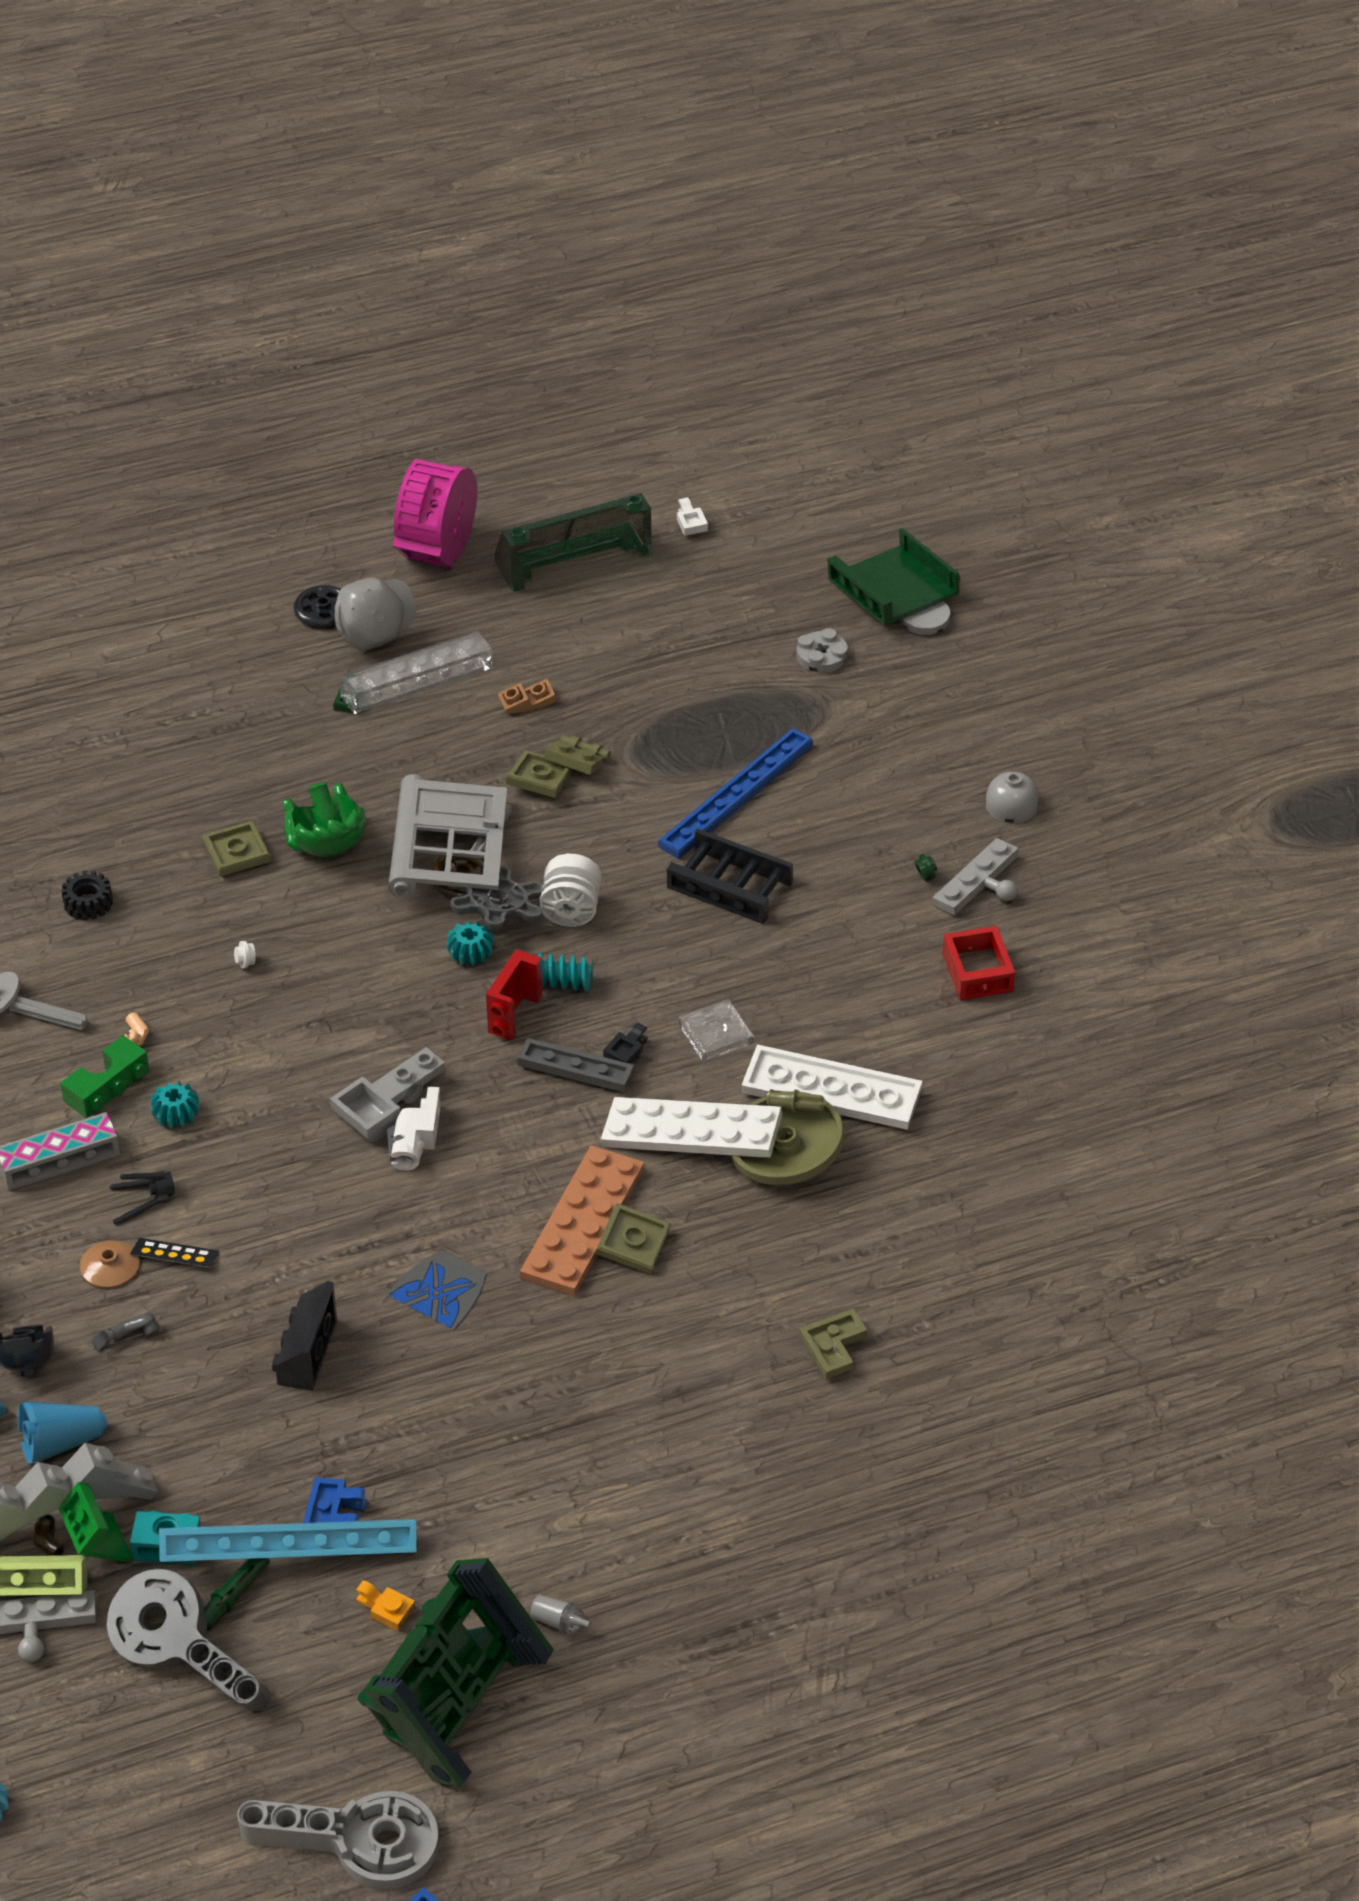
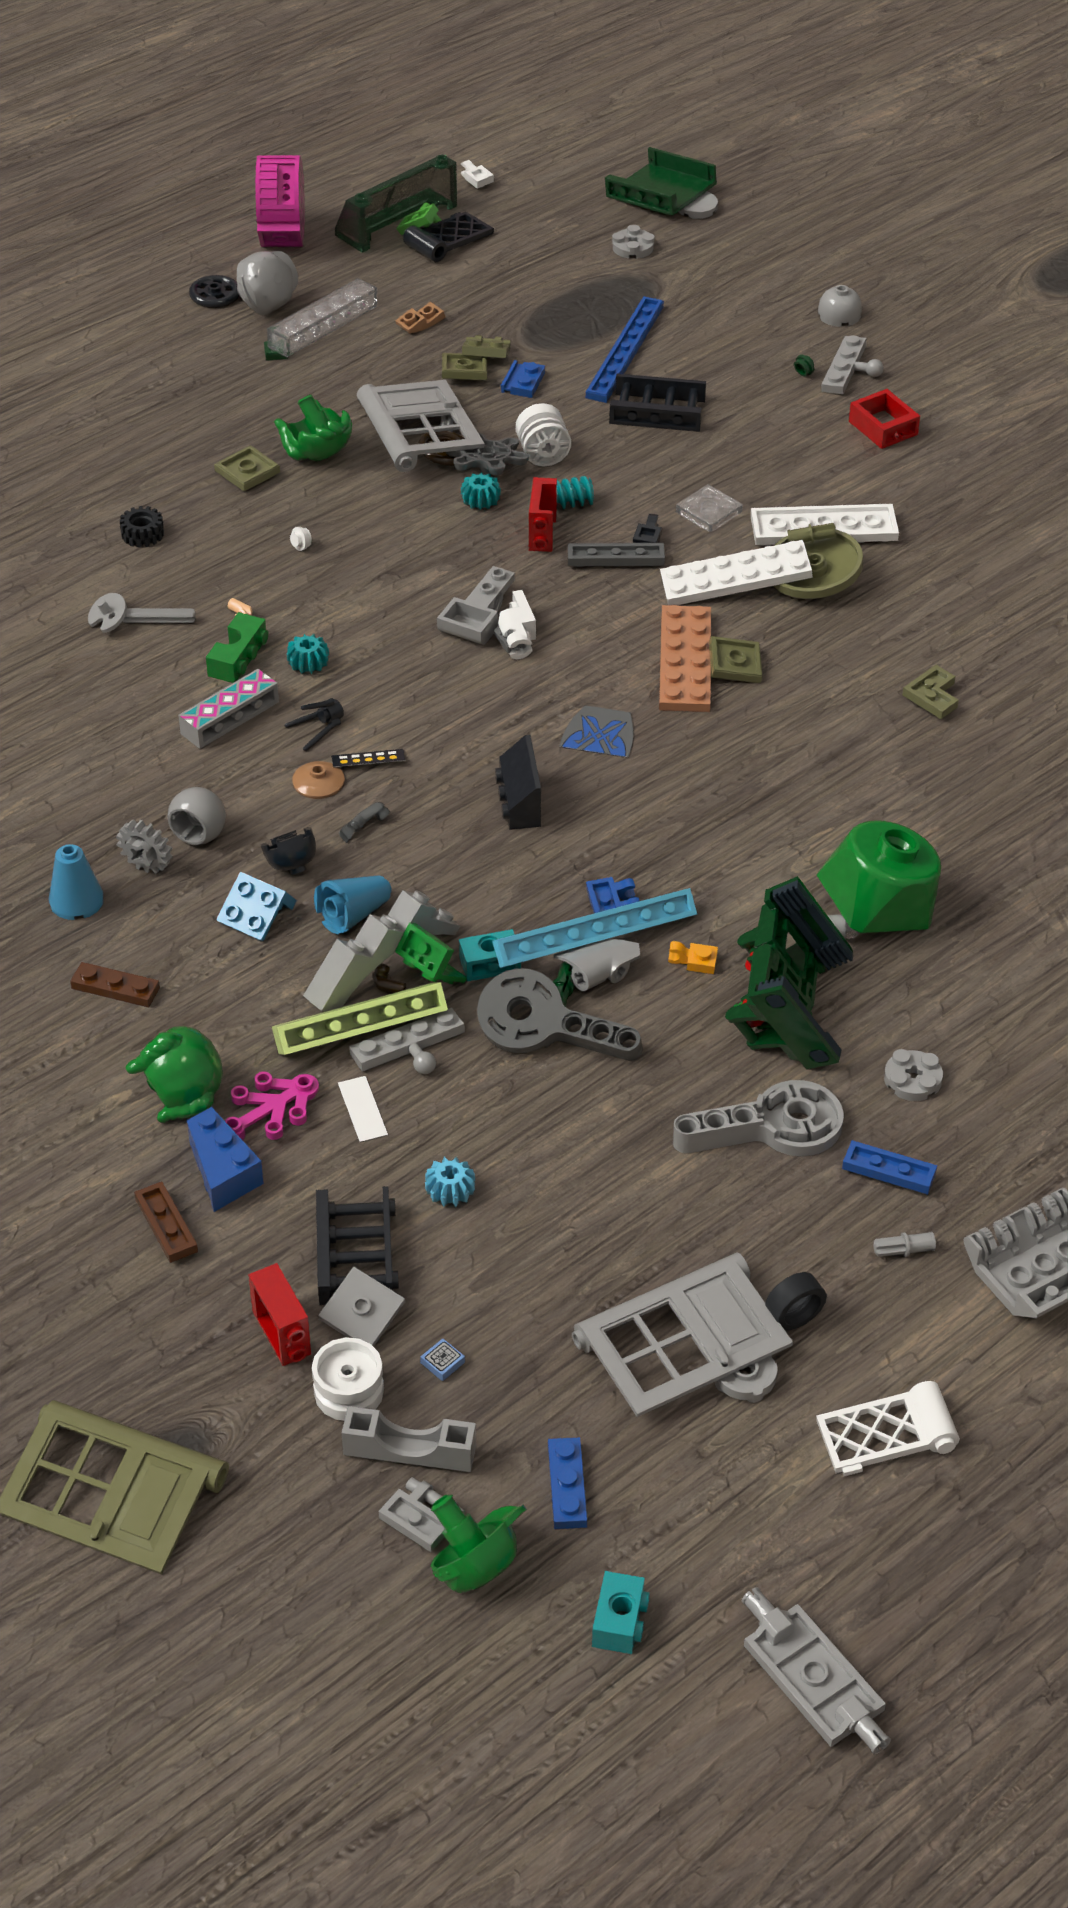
camera: 20 degrees left, 0 degrees up
(275, 1581) = (600, 961): none -> light grey panel
(537, 1808) = (911, 1061): none -> light grey plate
(590, 601) = (434, 245): none -> black piece
(593, 565) = (423, 217): none -> bright green plate
(599, 805) = (523, 378): none -> blue plate
(625, 1575) = (883, 878): none -> green piece

